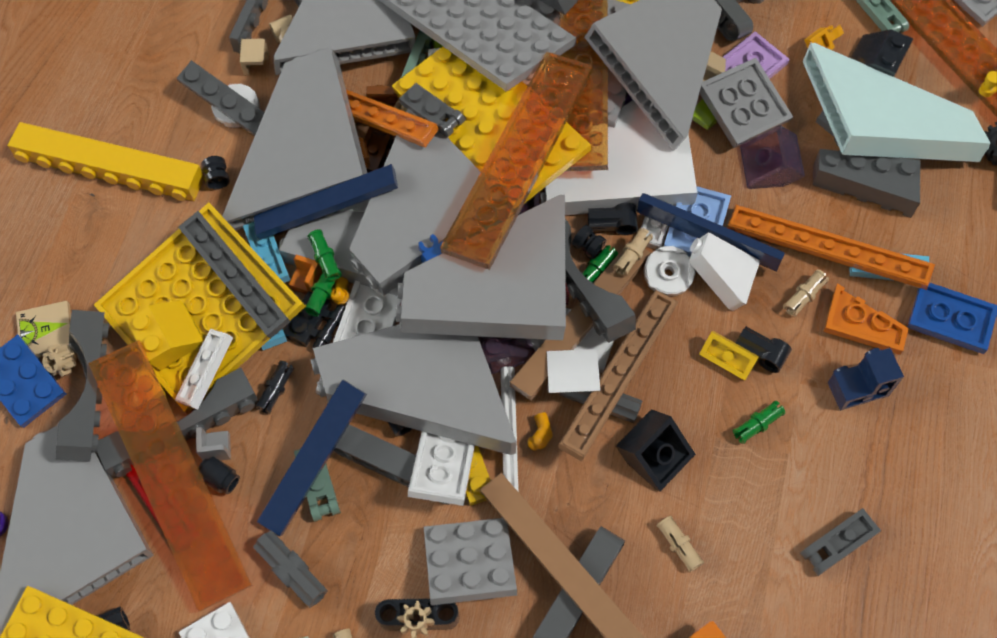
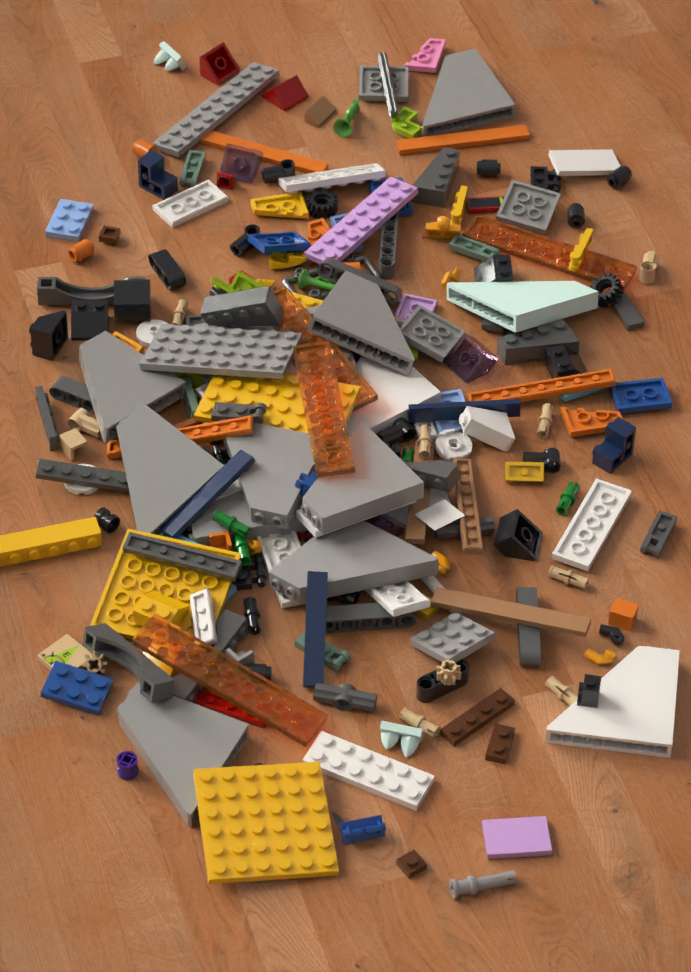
camera: 35 degrees left, 20 degrees down
(762, 480) = (591, 524): none -> white plate
(885, 223) = (563, 362): none -> black slope

